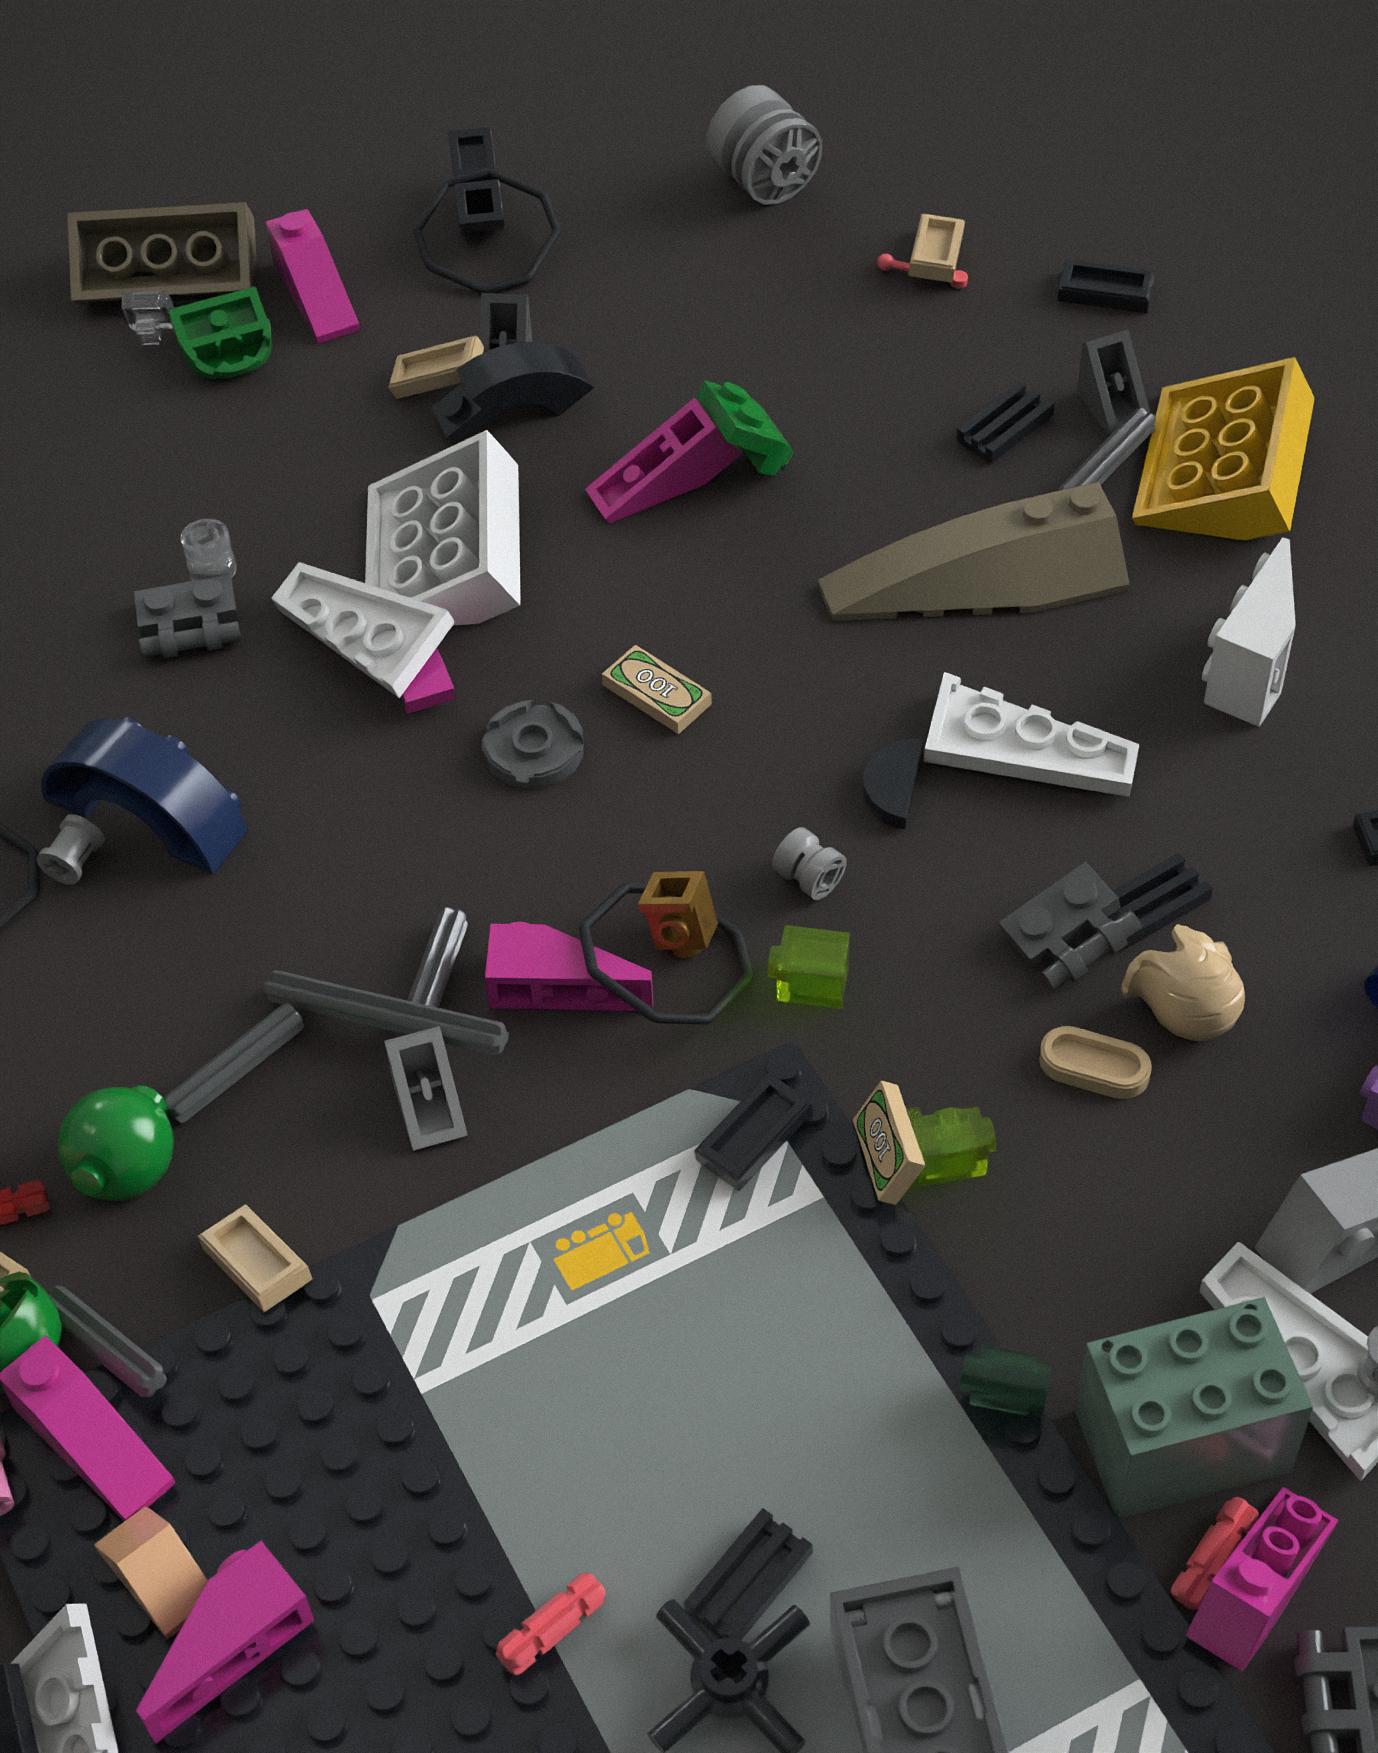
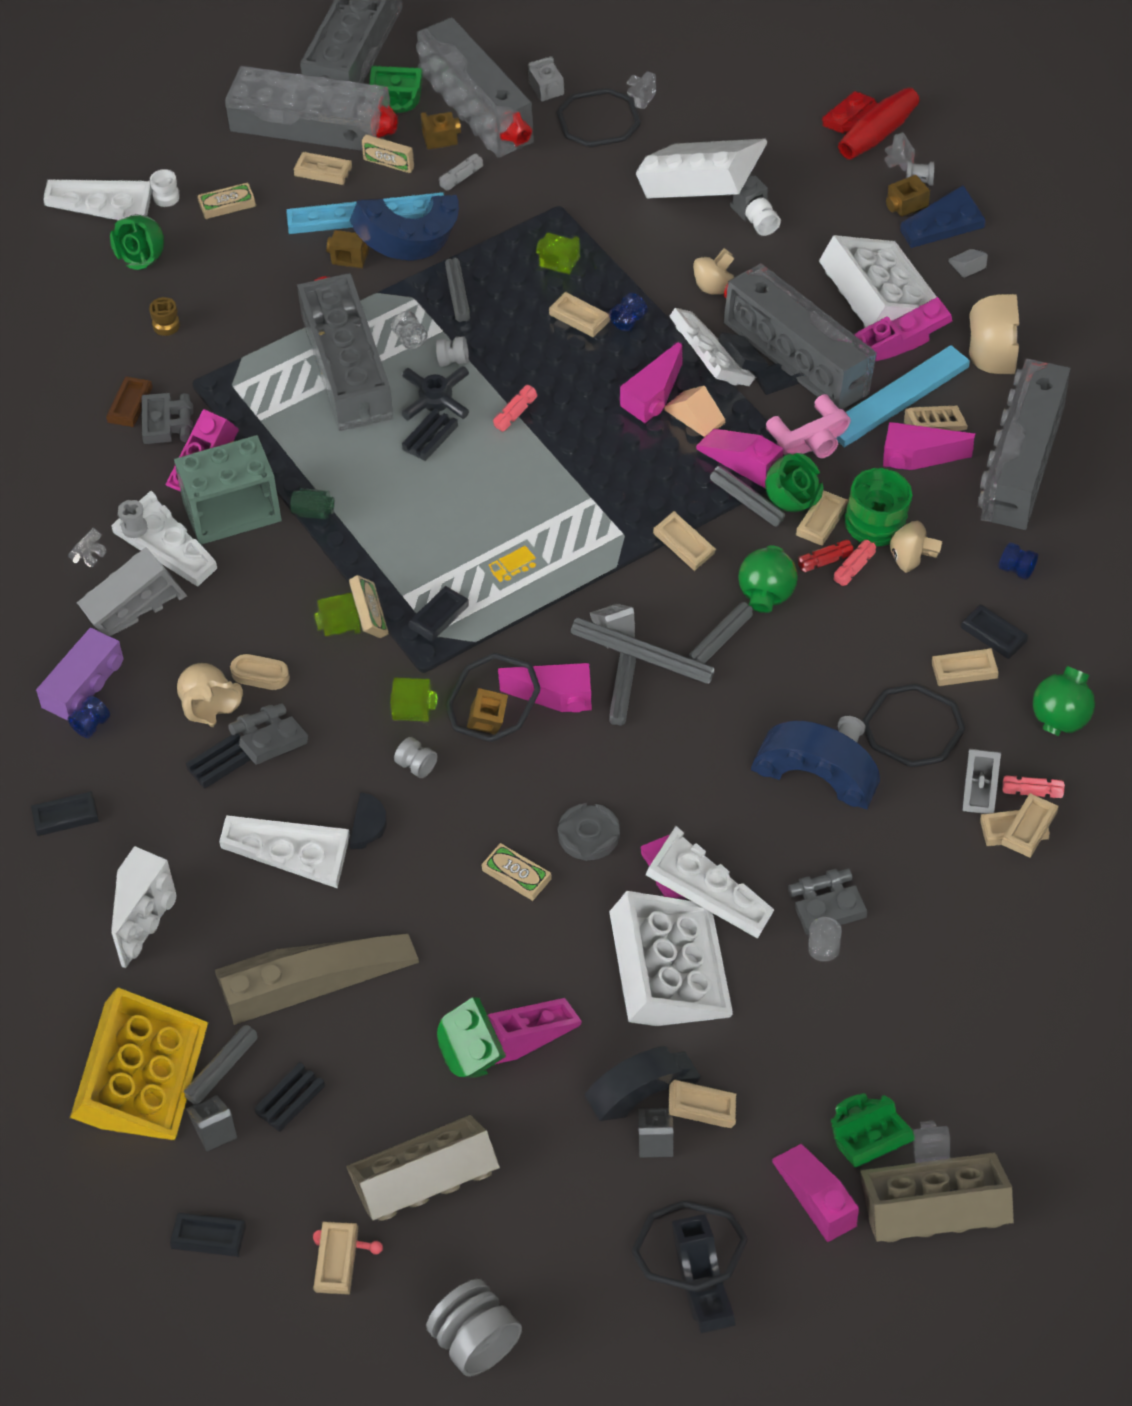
camera: 175 degrees right, 0 degrees up
(823, 325) = (423, 1168): none -> slope

